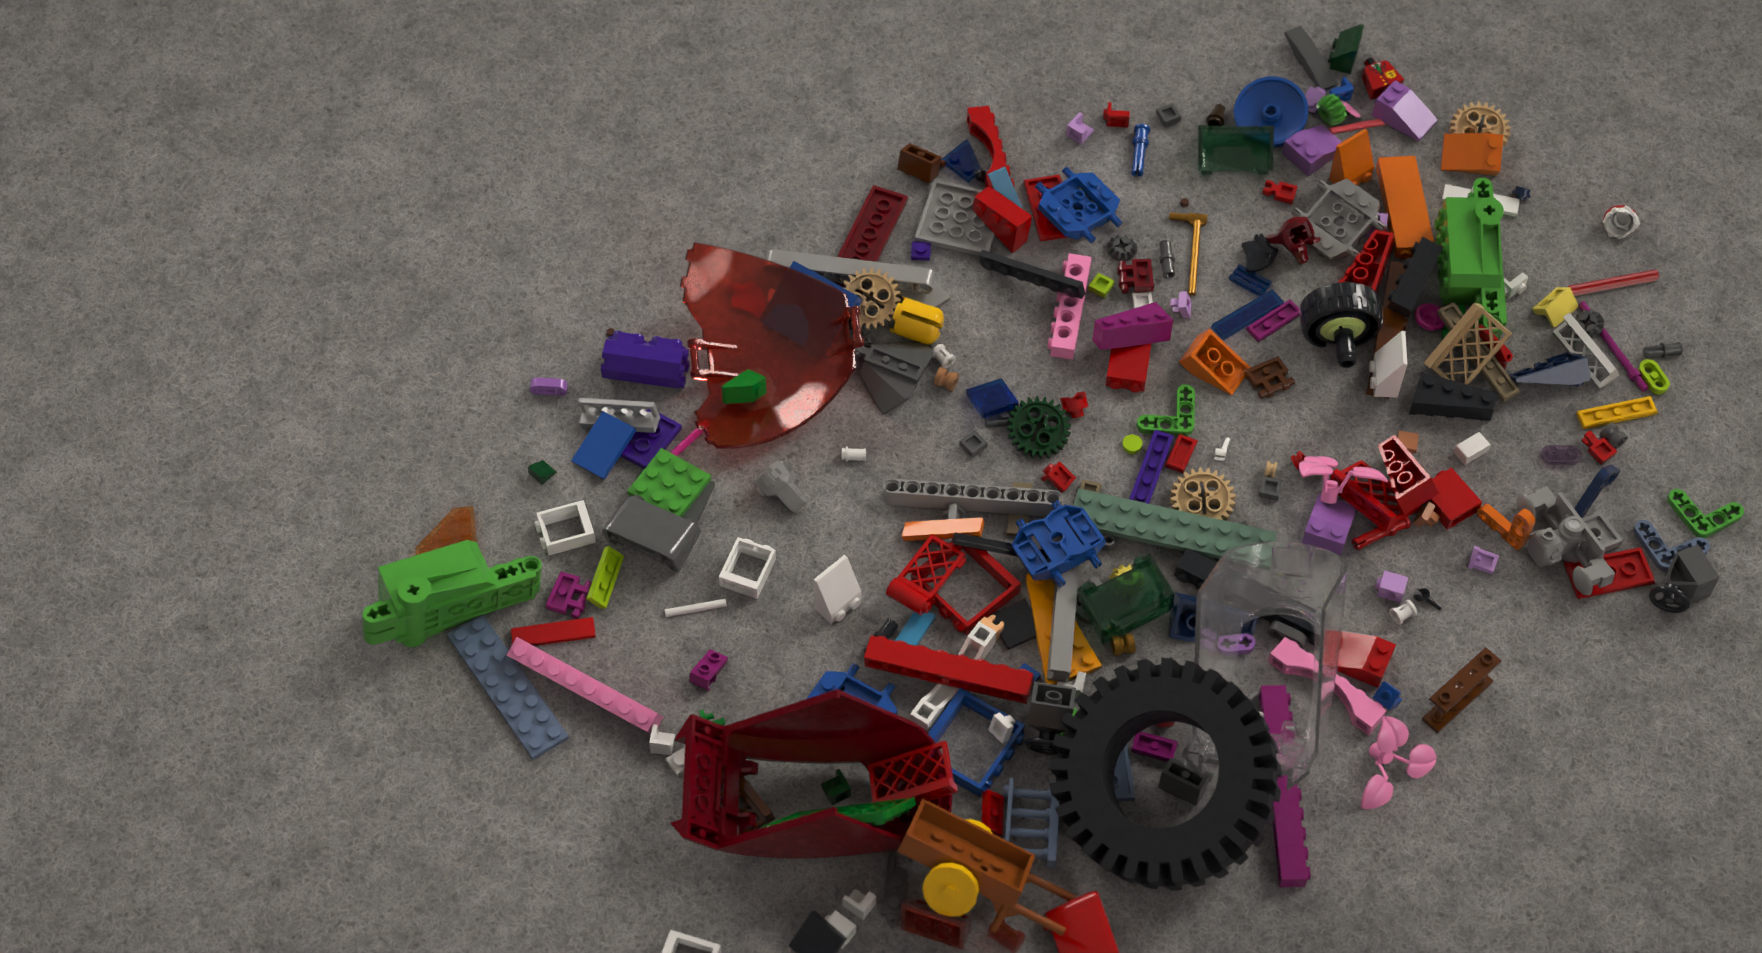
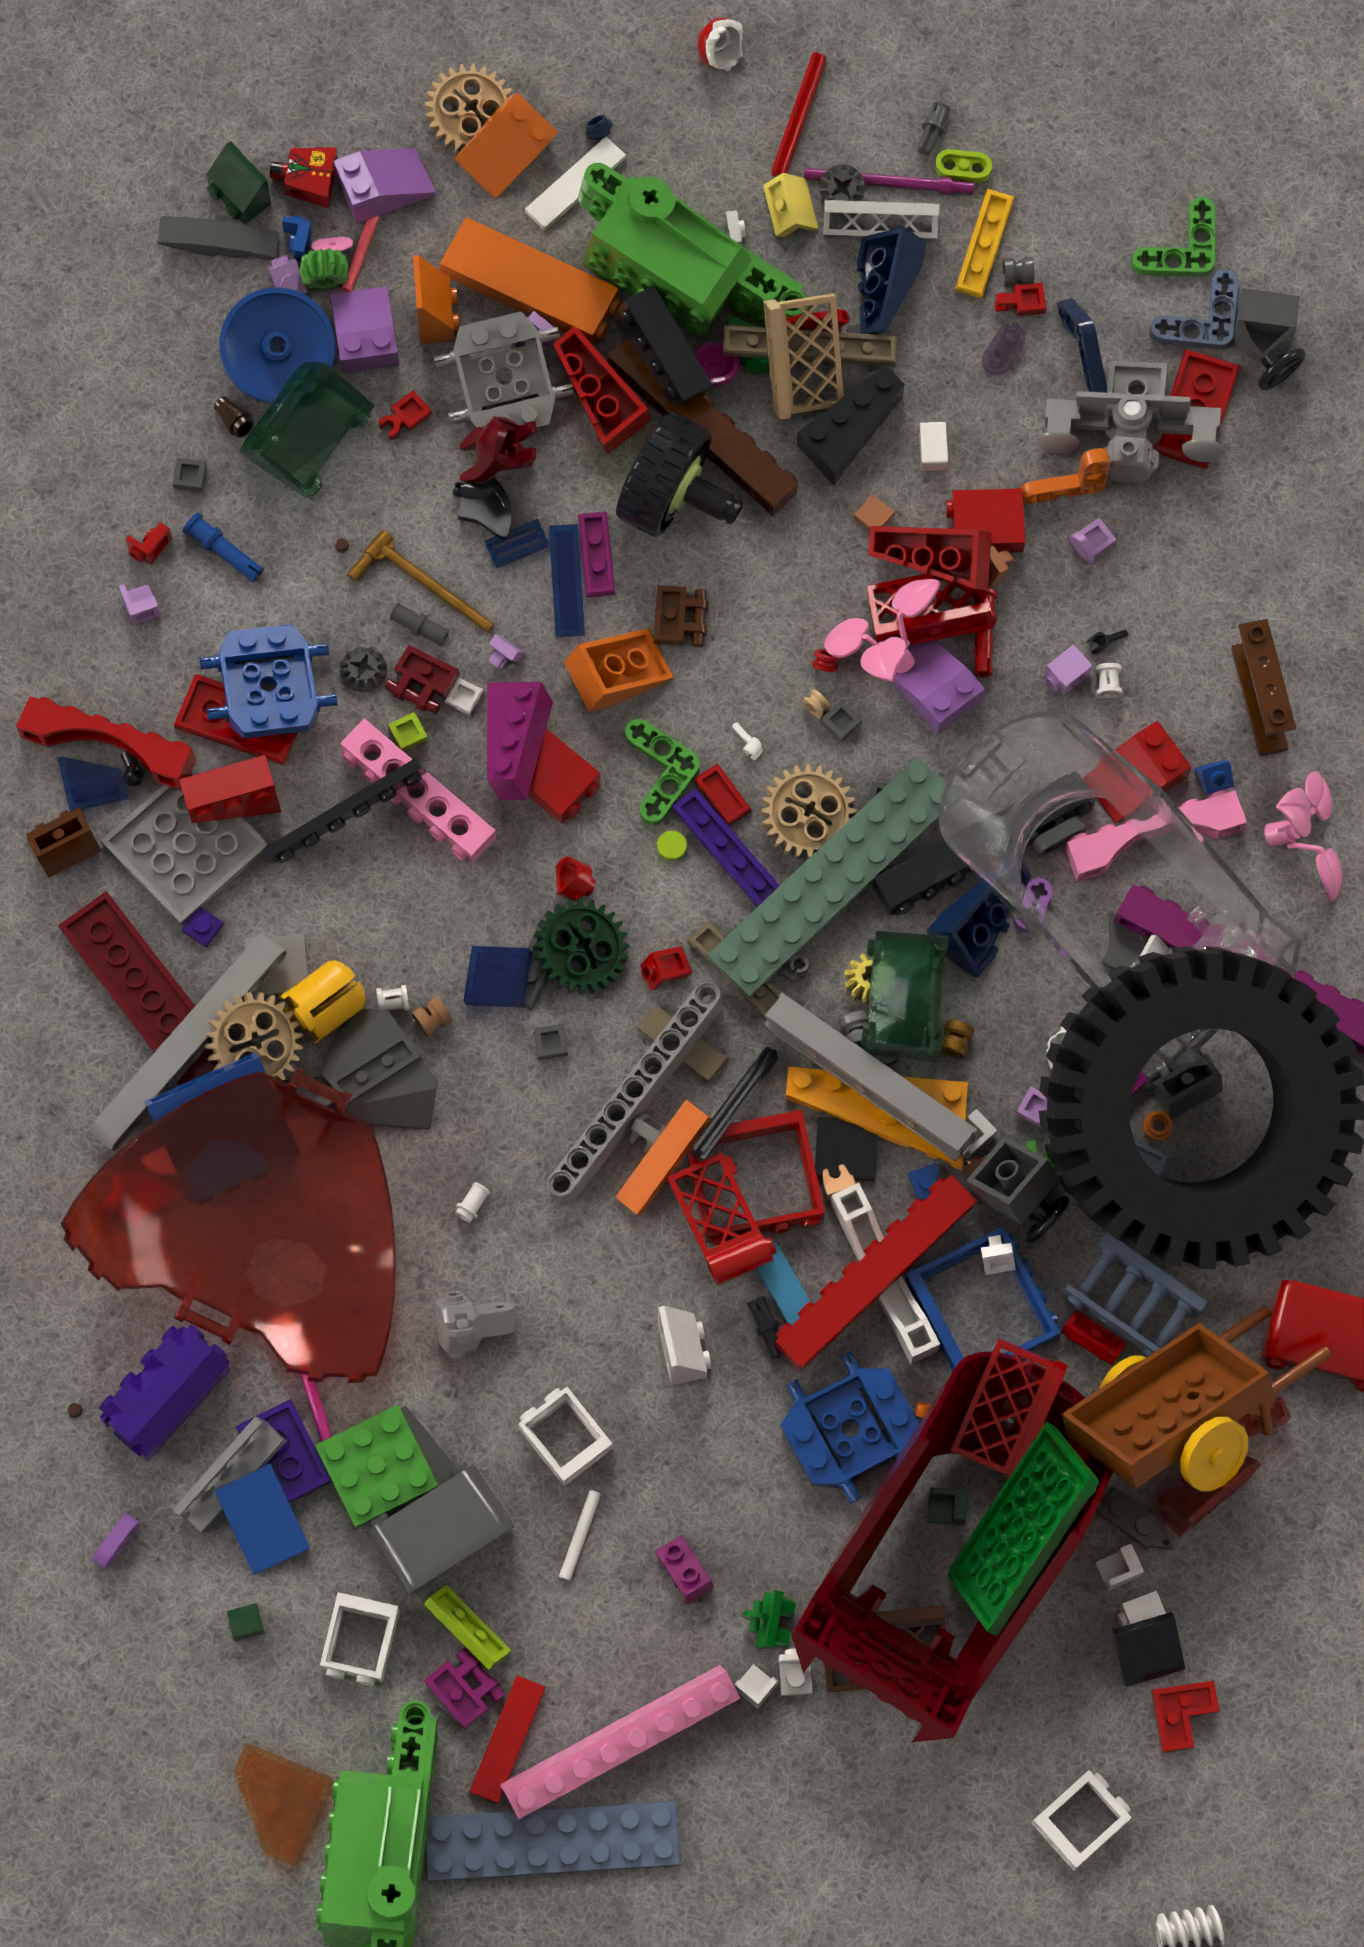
camera: 60 degrees left, 15 degrees up
(744, 388) = (291, 1283): green slope -> none
(1002, 183) = (189, 761): dark azure tile -> none
(1062, 554) = (807, 1035): blue piece -> none
(1152, 777) = (1162, 1117): none -> orange plate
(1389, 367) = (782, 467): white slope -> none

